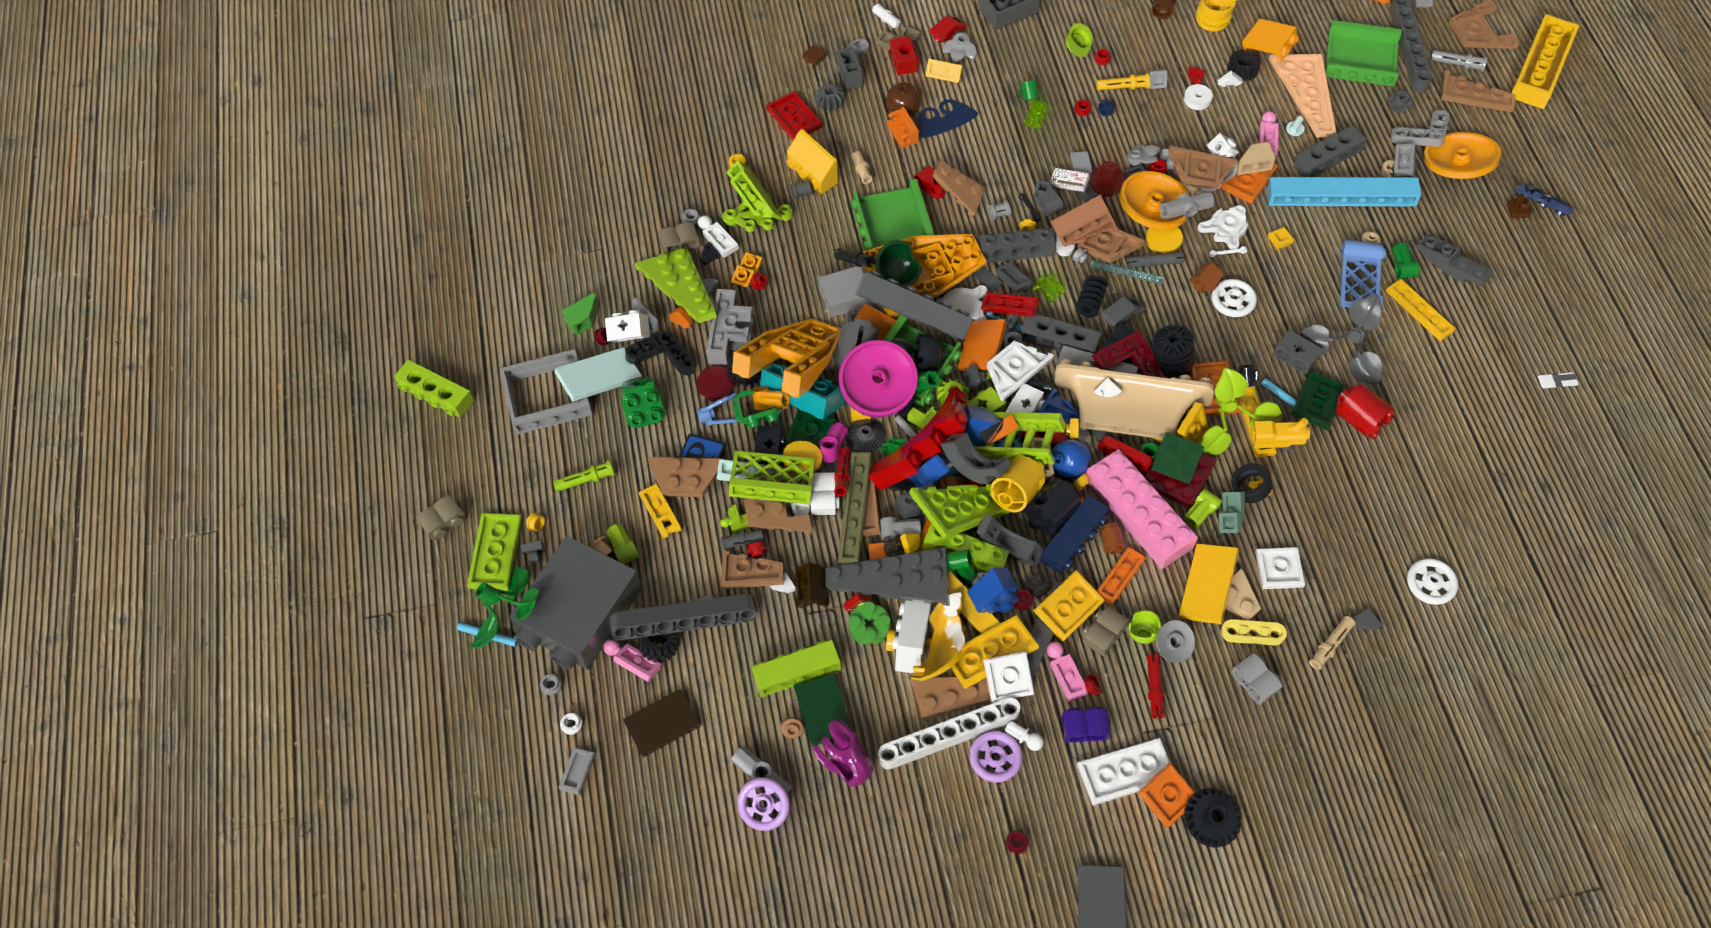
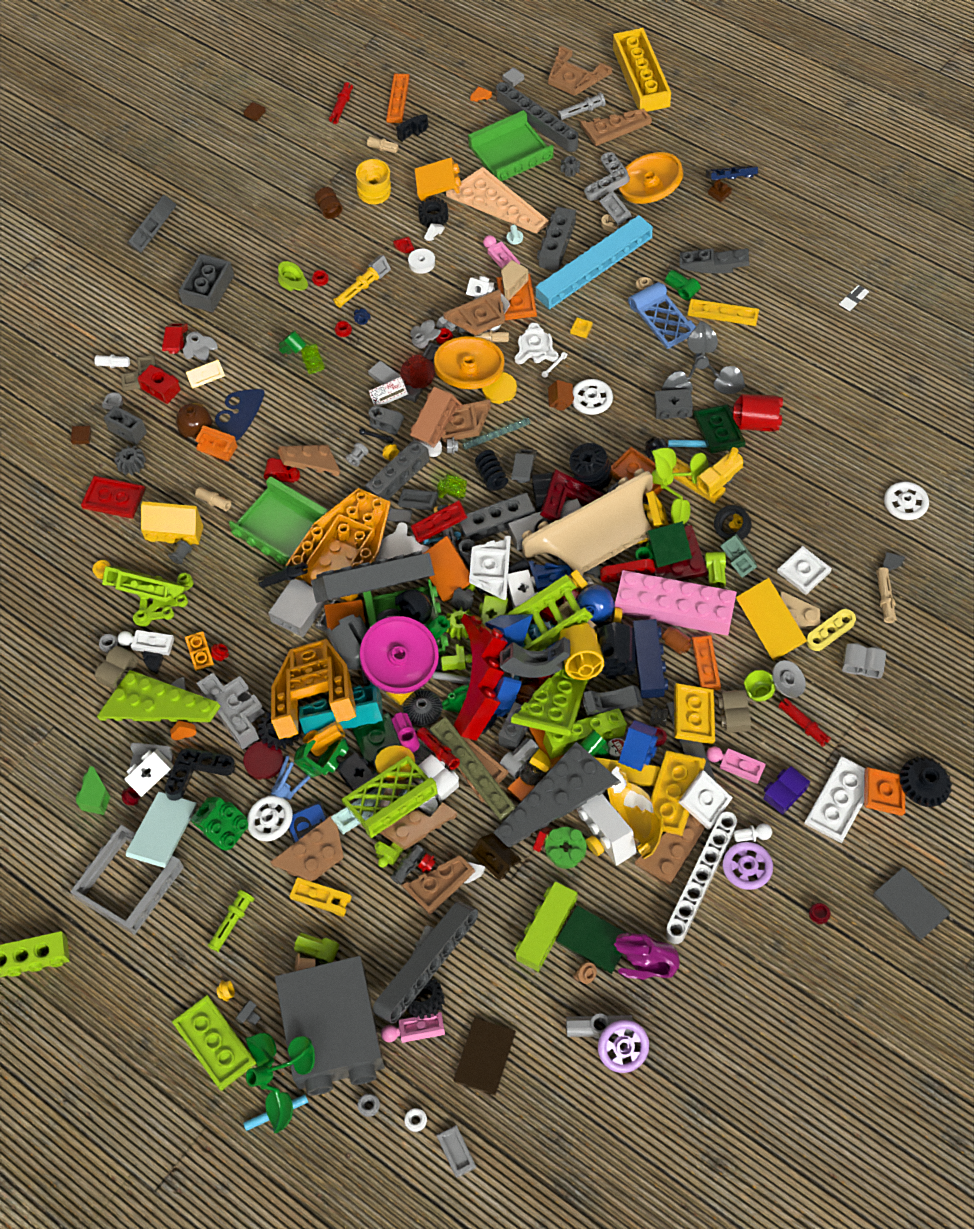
camera: 40 degrees left, 0 degrees up
(441, 517) = (141, 1054): dark tan brick -> none
(679, 426) = (276, 831): none -> white plate
(898, 263) = (327, 554): dark green cylinder -> none
(998, 430) = (528, 623): sticker -> none
(1093, 685) = (762, 756): red tile -> none
(1107, 389) = (576, 531): white tile -> none
(1154, 260) = (504, 413): dark grey pin -> none
(1186, 205) = (497, 350): light grey piece -> none

